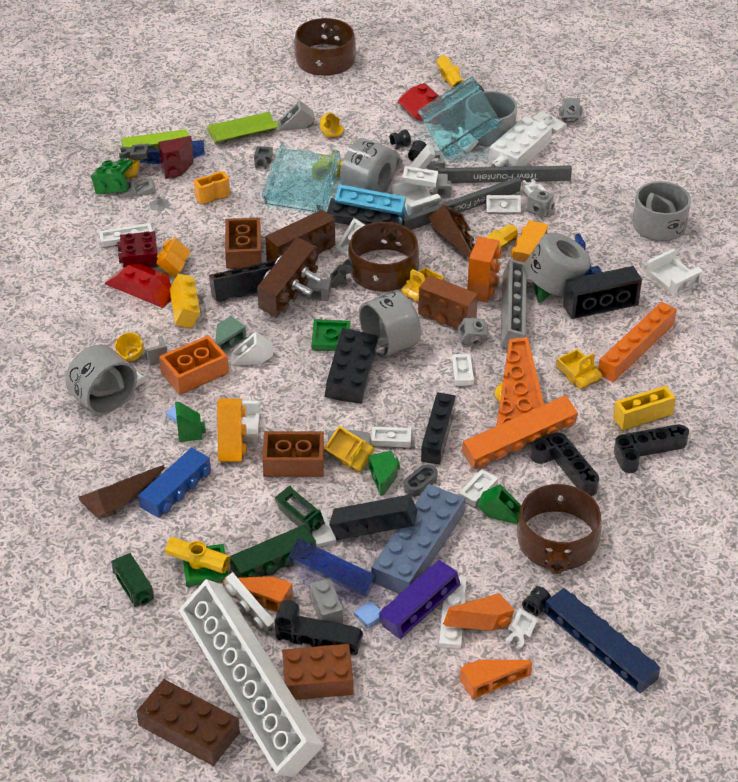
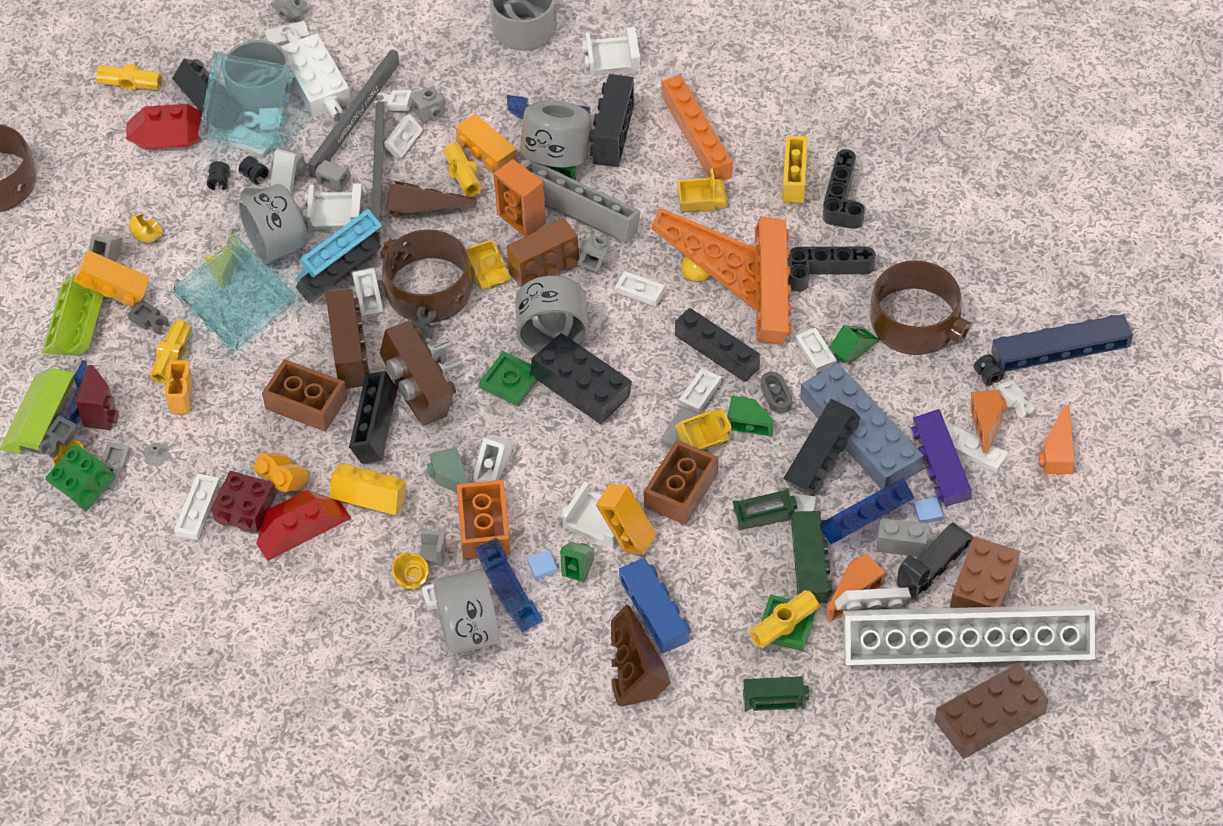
camera: 60 degrees left, 10 degrees up
(147, 400) = (507, 585): none -> clear blue slope
(242, 175) = (170, 350): none -> yellow piece
(272, 123) = (111, 279): none -> light orange brick
(419, 176) = (319, 184): white plate -> none

